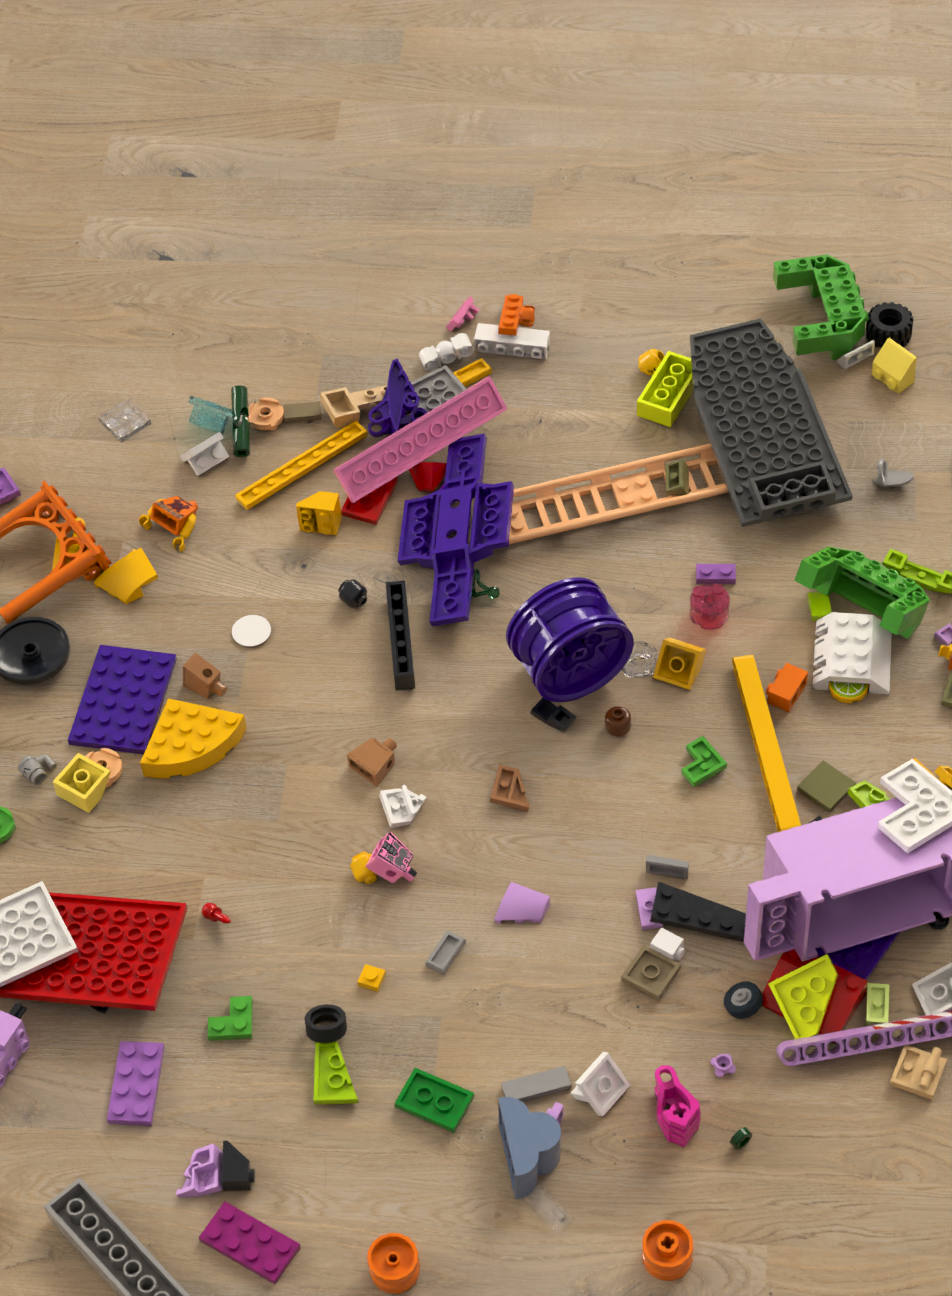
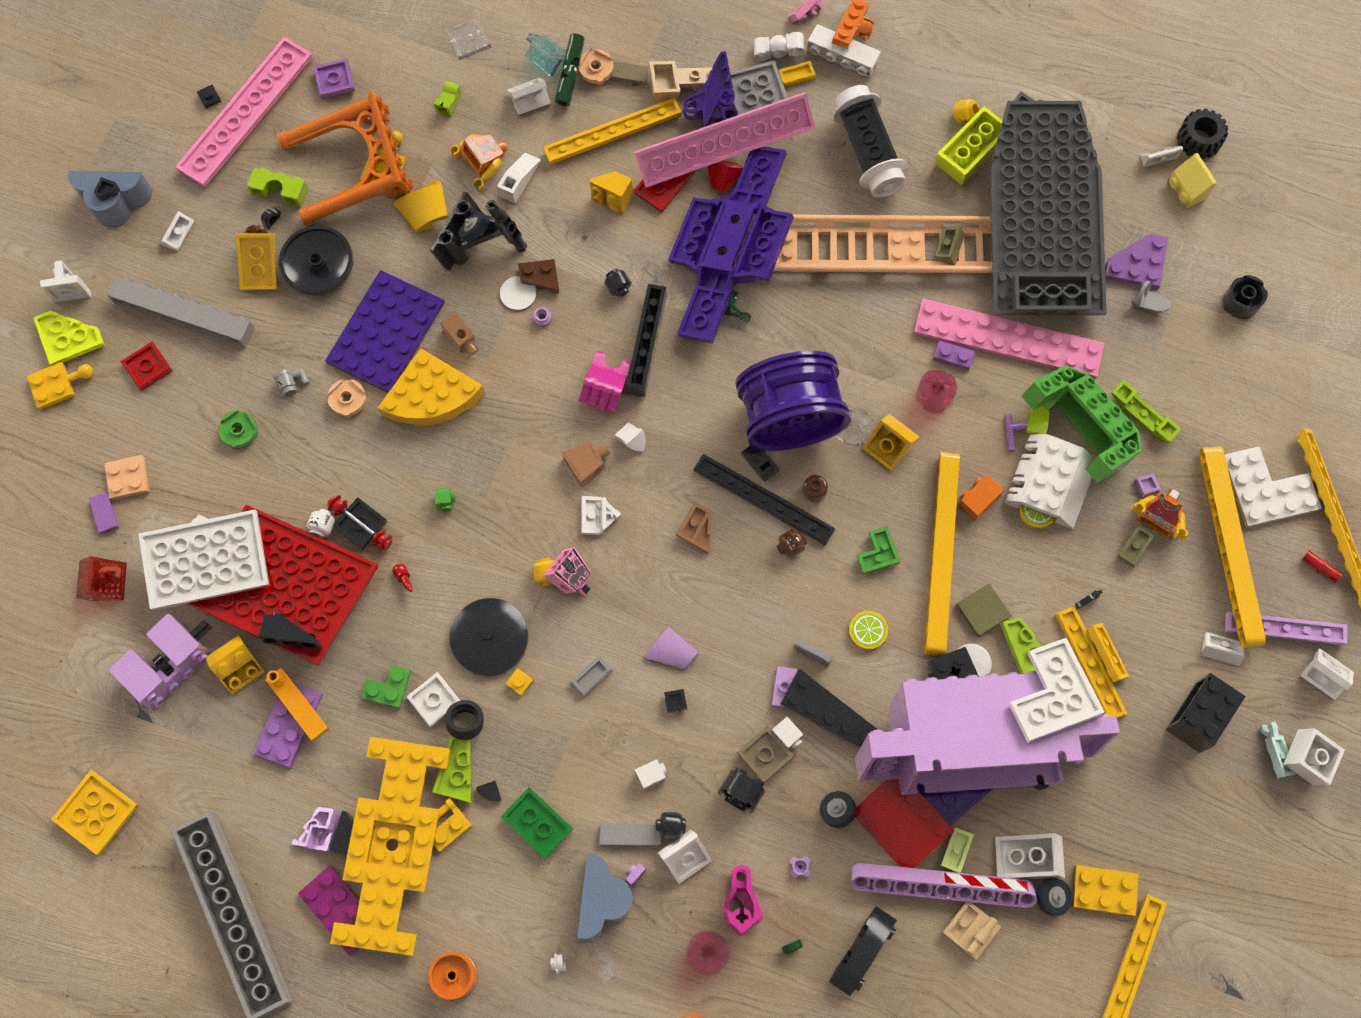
camera: 15 degrees right, 20 degrees up
(61, 1041) = (234, 664): none -> yellow slope
(82, 782) = (323, 411): light yellow slope -> none
(112, 885) = (320, 523): none -> white head
(113, 983) = (281, 631): none -> black slope
(121, 476) = (448, 99): none -> lime leg
(140, 1055) = (296, 704): none -> light orange piece
(153, 876) = (359, 523): none -> black plate
(183, 579) = (451, 248): none -> black plate
(191, 572) = (473, 227): none -> black wheel
(217, 529) = (517, 177): none -> white slope
(236, 831) = (444, 499): none -> bright green plate
(268, 608) = (540, 274): none -> reddish brown wing
(283, 644) = (539, 312): none -> lavender plate
(283, 1136) = (391, 872): none -> yellow piece
(284, 1019) = (433, 699): none -> white tile
(325, 945) = (489, 637): none -> black dish
(342, 1134) = (452, 827): none -> yellow plate
(370, 683) = (604, 384): none -> dark pink piece
(374, 1086) = (490, 791): none -> black tile
(414, 724) = (632, 437): none -> white tile
(501, 1224) = (558, 963): none -> white plate
(539, 1022) = (651, 774): none -> white brick
(541, 949) = (675, 700): none -> black plate
(569, 747) = (764, 499): none -> black tile
(570, 410) = (880, 166): none -> brick
(575, 1060) = (670, 825): none -> black head
(611, 775) = (791, 543): none -> reddish brown head
(638, 1007) = (742, 790): none -> black brick
(655, 1167) = (696, 957): none -> clear pink brick
(716, 834) = (868, 630): none -> tile
(758, 545) = (1008, 338): none -> bright pink plate
(795, 623) = (1010, 428): none -> medium lavender piece
(805, 995) = (893, 828): neon yellow plate -> none
(816, 1112) = (863, 951): none -> black brick
(840, 296) = (1165, 94): bright green wedge -> none
(868, 448) = (1139, 262): none -> medium lavender plate
(926, 748) = (1094, 595): none -> black piece

